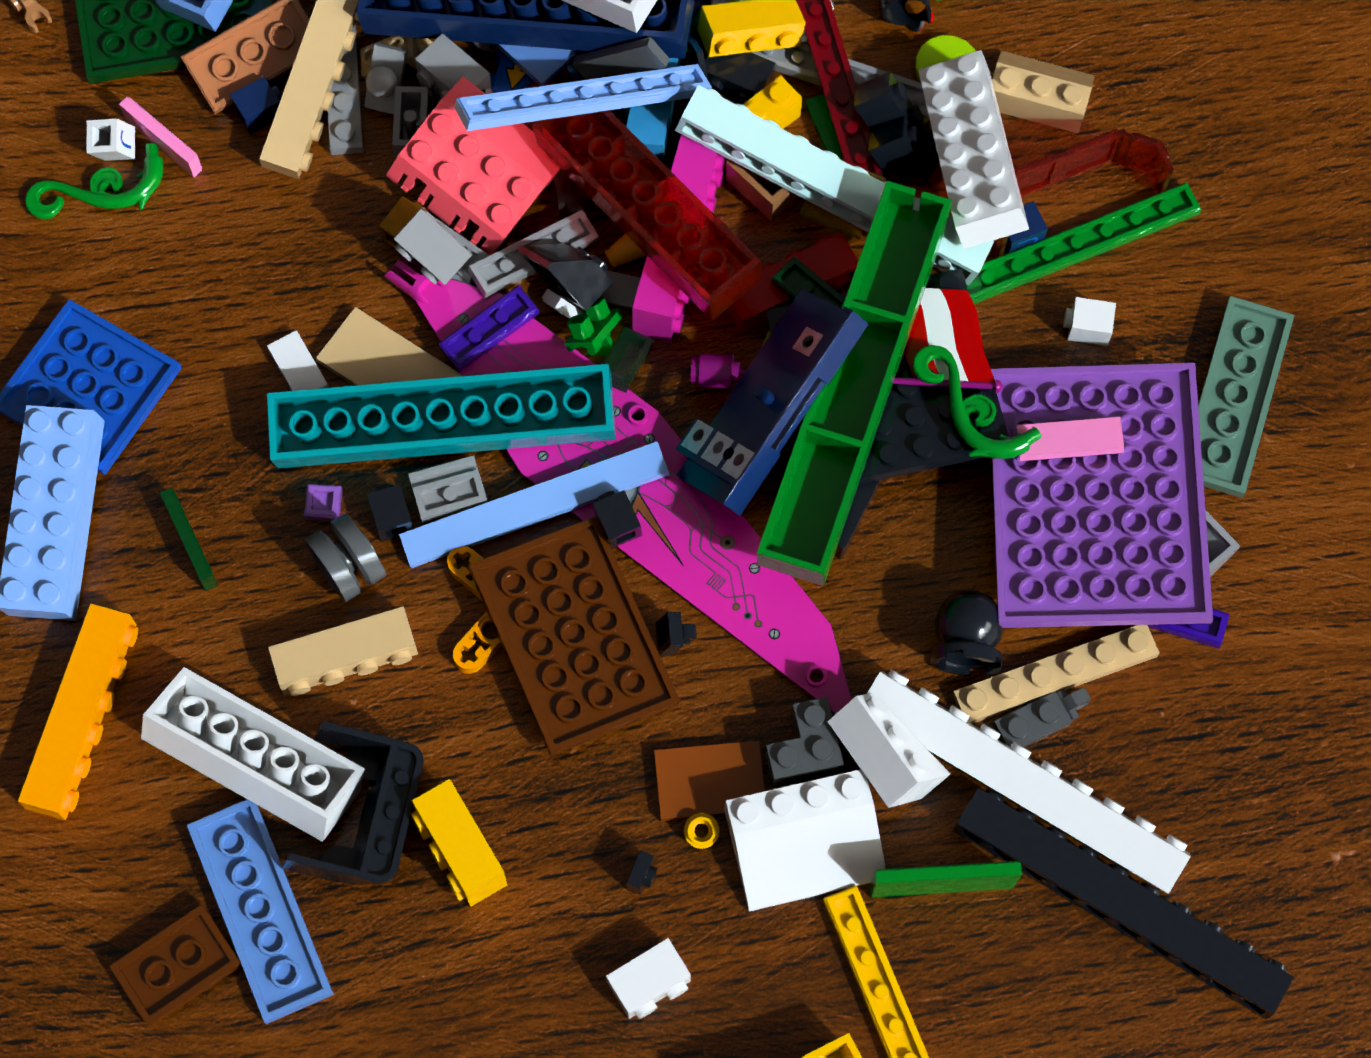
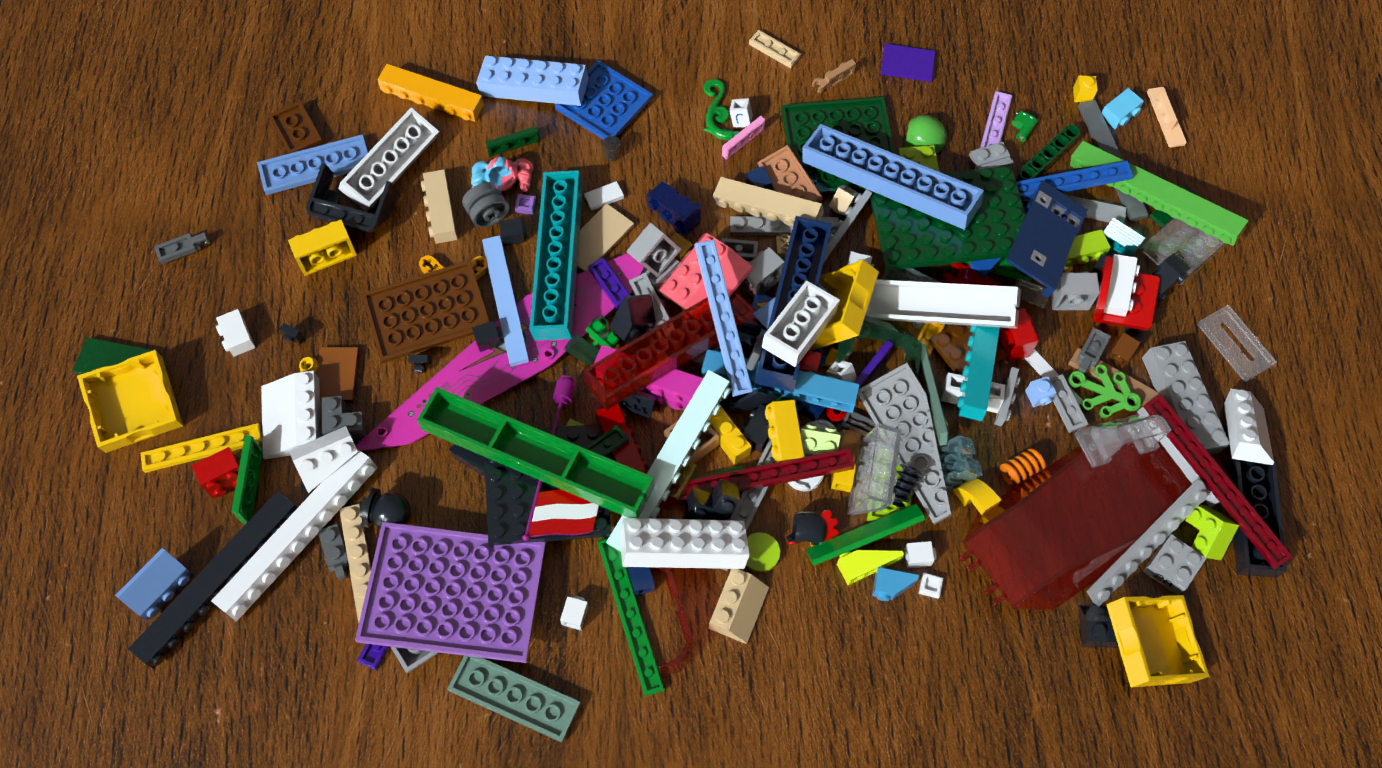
camera: 95 degrees right, 5 degrees down
(198, 355) = (612, 148): none -> clear smoke brick
(267, 549) = (503, 173): none -> hair
(325, 237) = (674, 209): none -> clear blue wedge
(385, 73) = (767, 239): light grey tile -> none
(447, 488) = (521, 259): light grey plate -> none
(769, 401) = (514, 395): dark blue piece -> none
(938, 929) = (218, 472): none -> red brick
(985, 409) = (512, 513): green plant -> none
(1074, 438) = (487, 577): bright pink tile -> none
(1155, 999) = (154, 585): none -> medium blue slope

